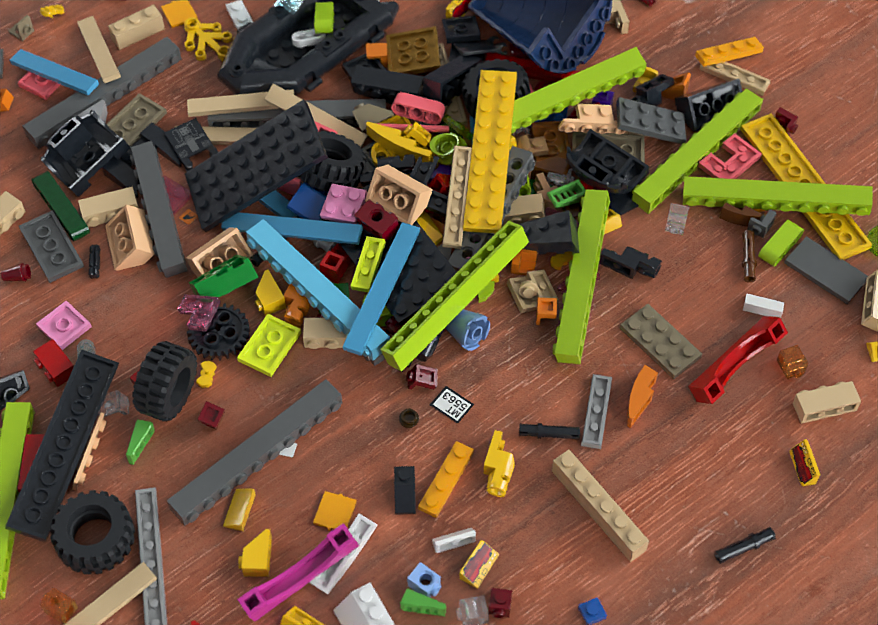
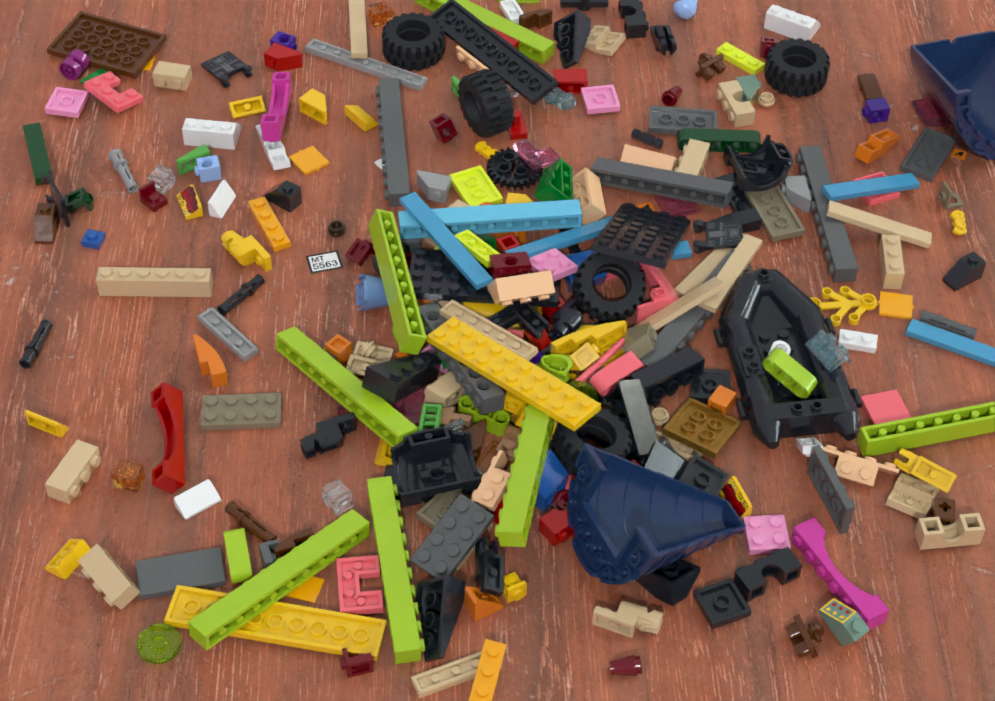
camera: 125 degrees right, 10 degrees down
(294, 375) = (434, 186): none -> light grey slope

